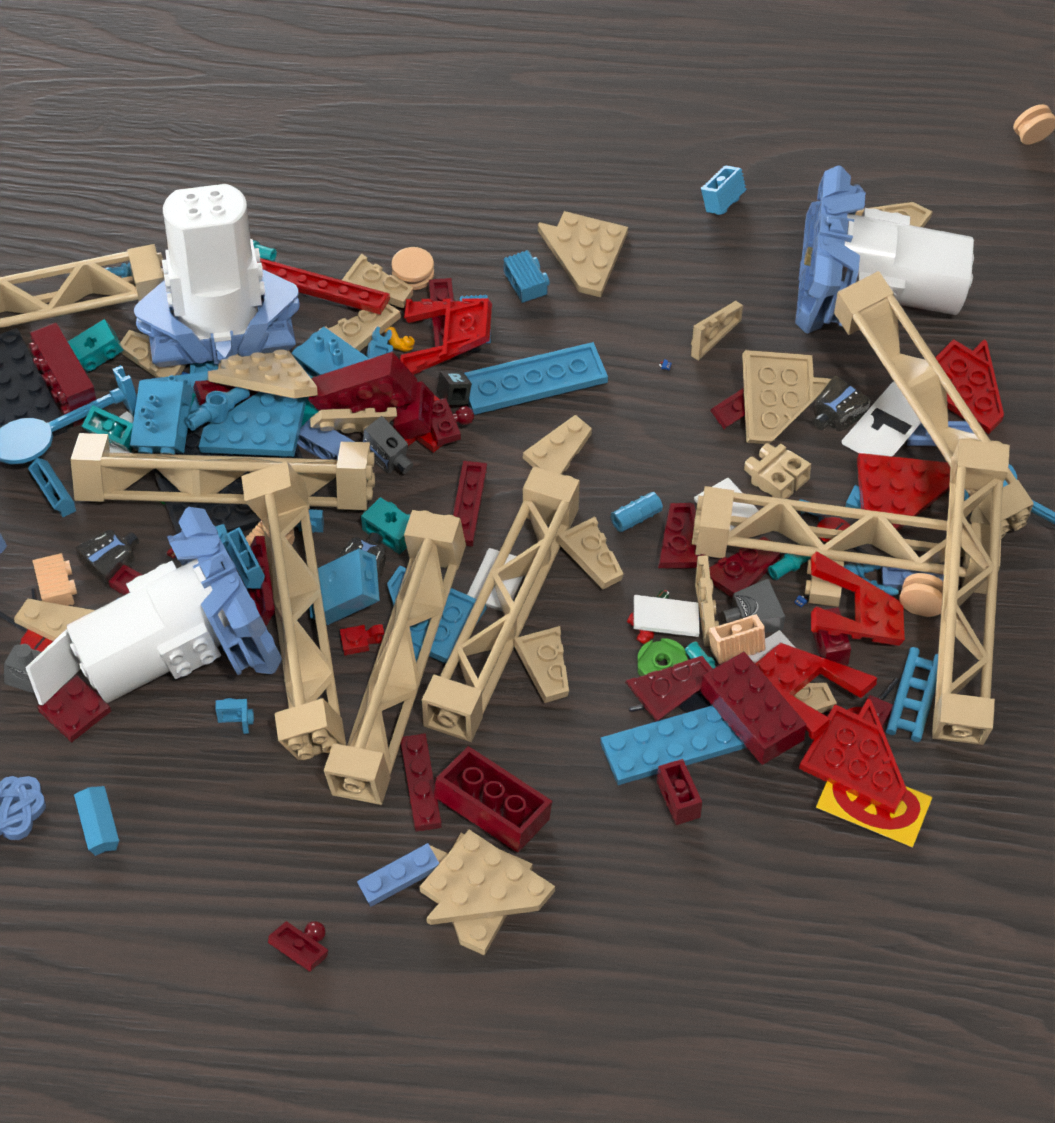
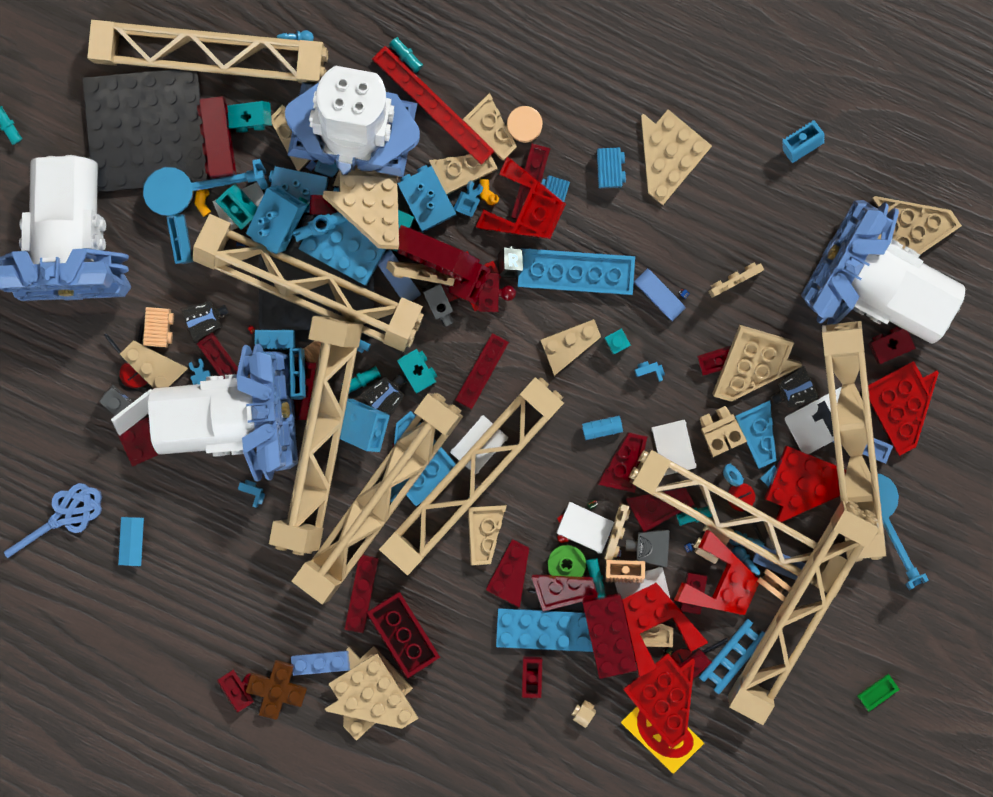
camera: 20 degrees right, 35 degrees up
(63, 445) = (200, 198): none -> light orange arm
(328, 554) = (364, 378): none -> teal pin
(352, 925) = (276, 689): none -> reddish brown plate
(357, 639) = (359, 459): red plate -> none
(590, 551) = (554, 450): tan wing -> none
(598, 698) = (510, 574): none -> dark red wing
(612, 423) = (617, 341): none -> teal brick
(638, 369) = (659, 294): none -> medium blue beam
(662, 438) = (645, 368): none -> dark azure bracket
(765, 815) = (584, 713): none -> tan plate
(825, 465) = (758, 431): none -> dark azure wing
(929, 326) = (902, 345): none -> dark red brick

